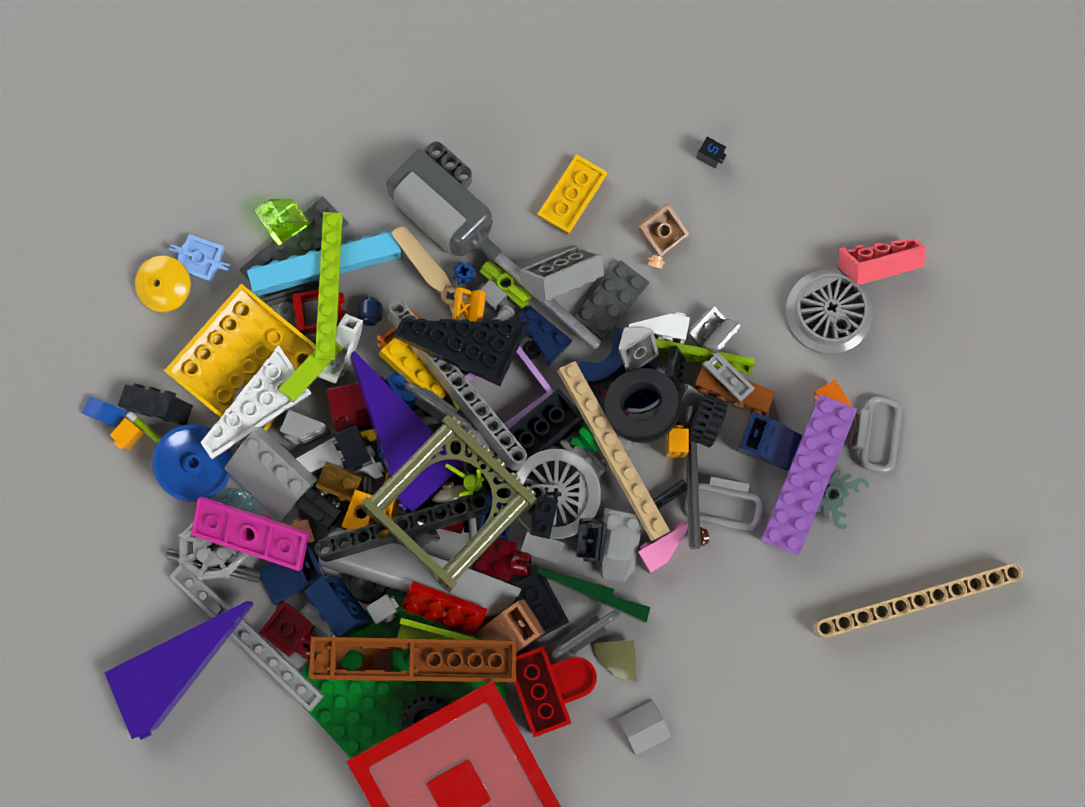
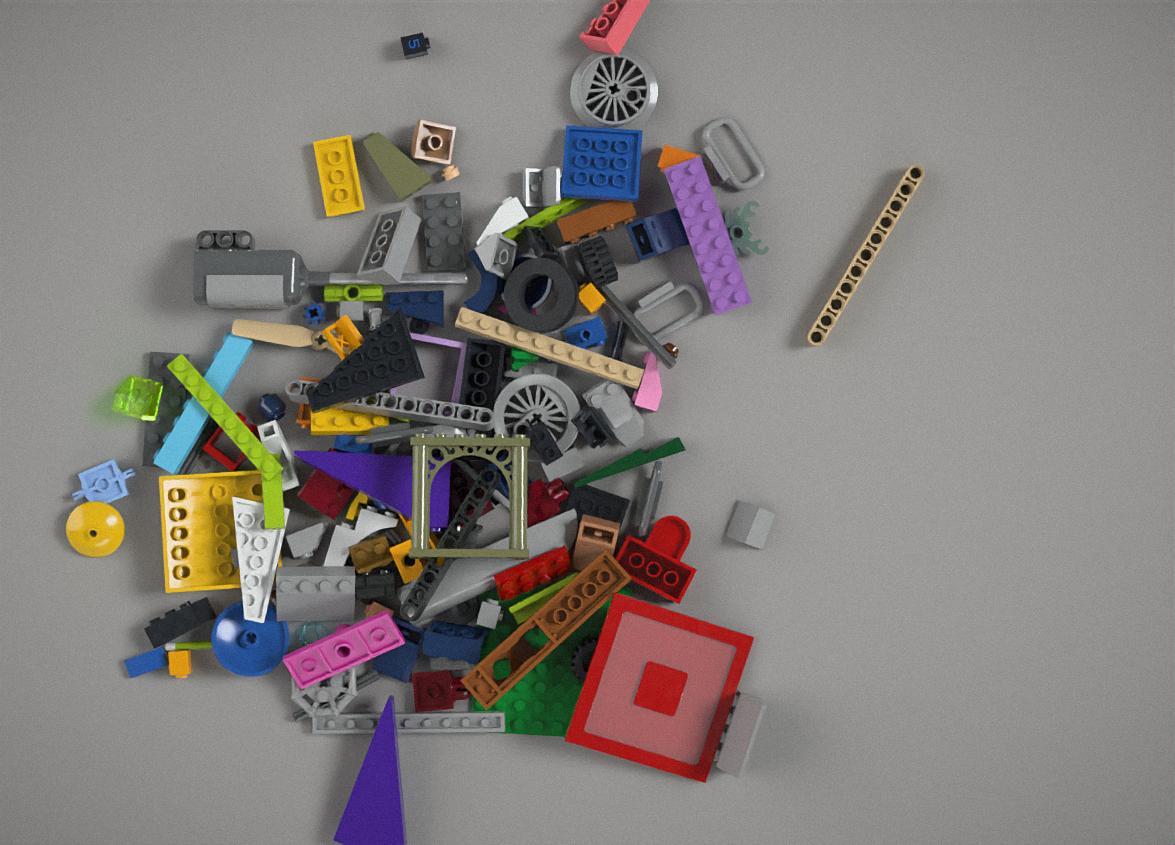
camera: 40 degrees left, 10 degrees up
(352, 448) = (360, 521): black brick -> none
(448, 492) = (460, 488): dark tan dish -> none
(471, 482) = (470, 467): lime plant -> none
(618, 658) = (688, 493): olive brick -> none
(619, 228) = (399, 170): none -> olive slope
(650, 467) = (587, 334): none -> blue brick
(728, 377) = (585, 214): light grey plate -> none
(774, 352) = (601, 163): none -> blue plate

